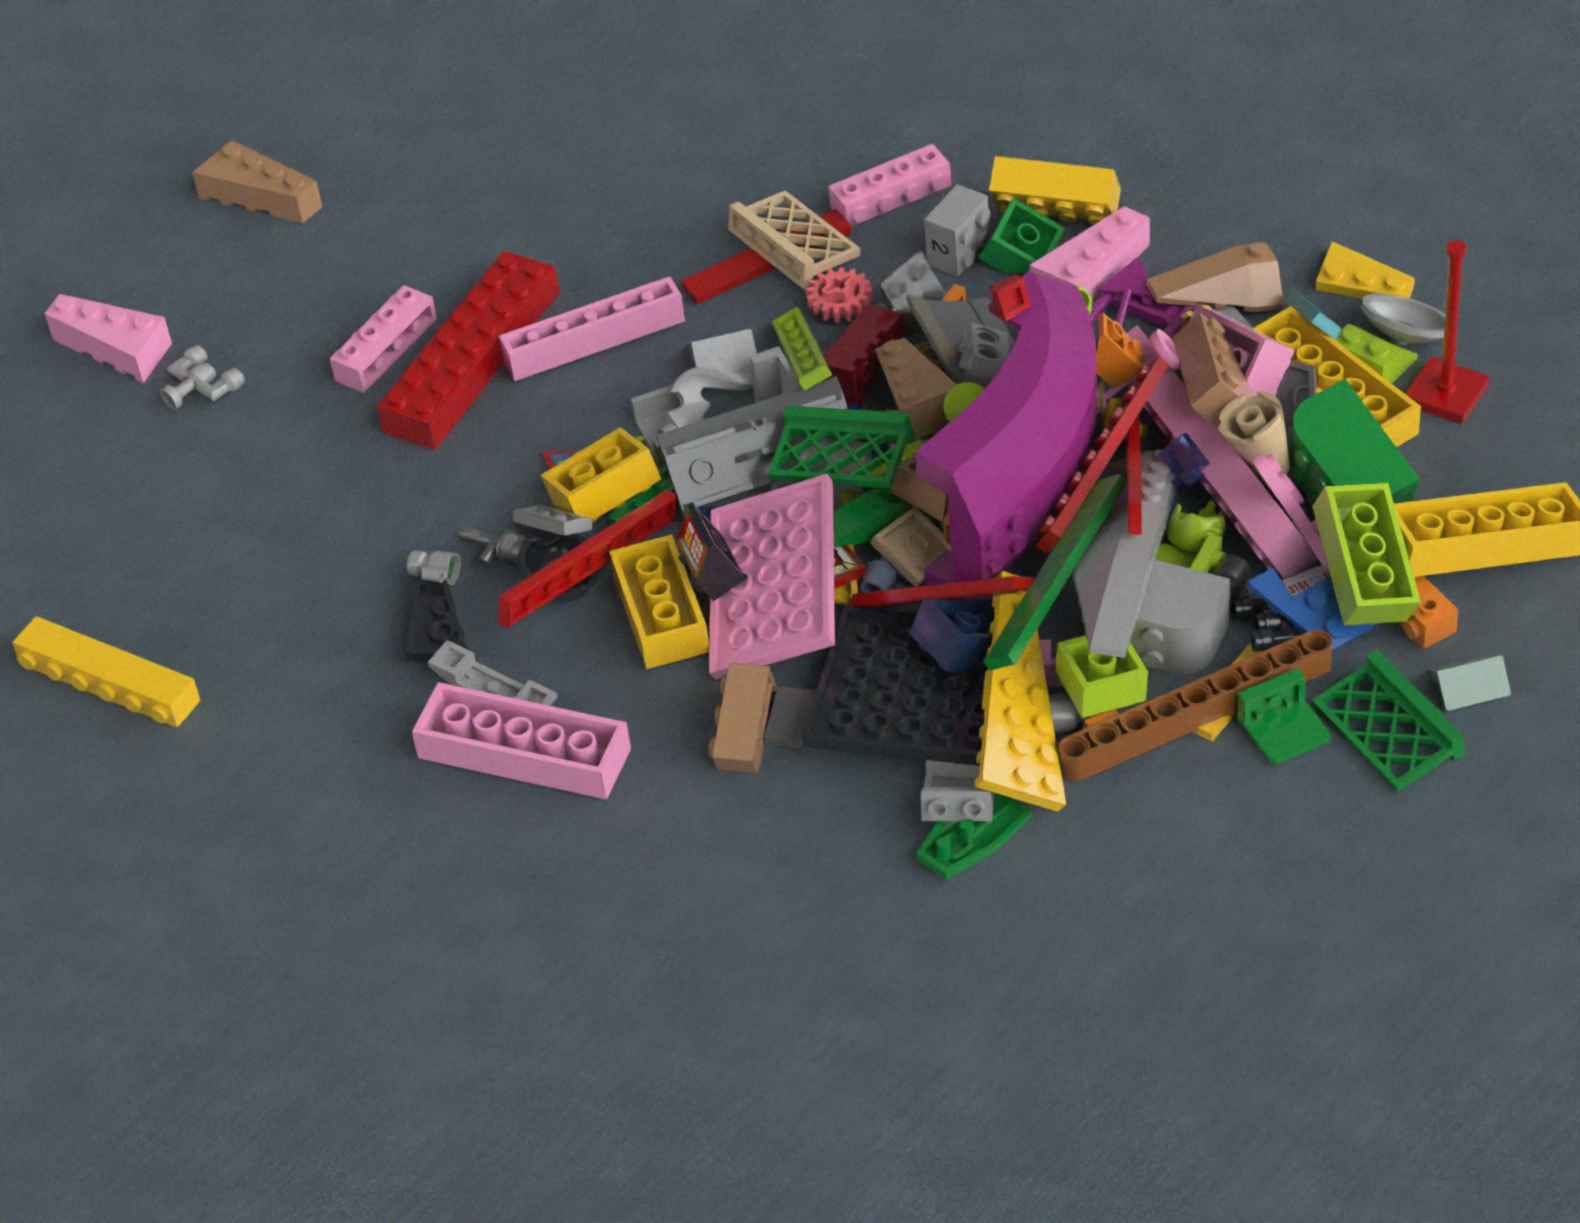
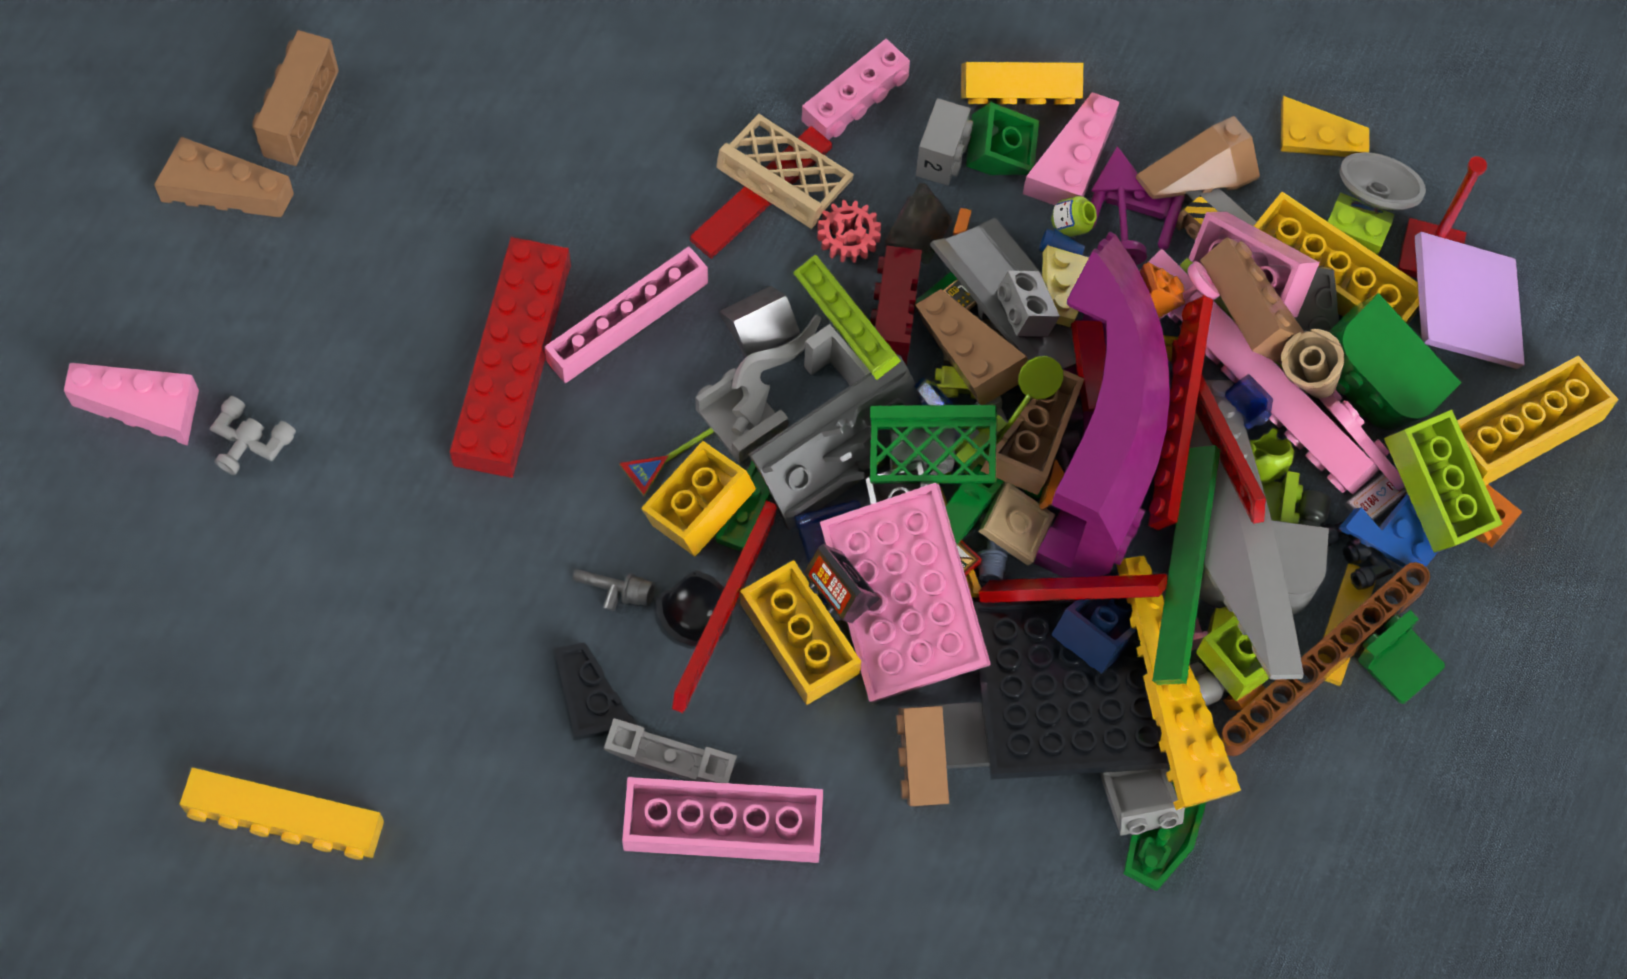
camera: 25 degrees left, 20 degrees up
(349, 126) = (295, 97): none -> medium nougat brick
(383, 338) = (418, 356): bright pink brick -> none
(437, 567) = (570, 625): light grey piece -> none
(552, 520) = (668, 557): light grey tile -> none
(1009, 297) = (1090, 294): red tile -> none
(1312, 313) = (1300, 193): teal tile -> none
(1415, 710) = (1506, 619): green fence -> none
(1464, 424) = (1469, 300): none -> lavender tile
(1471, 681) = (1545, 578): panel -> none

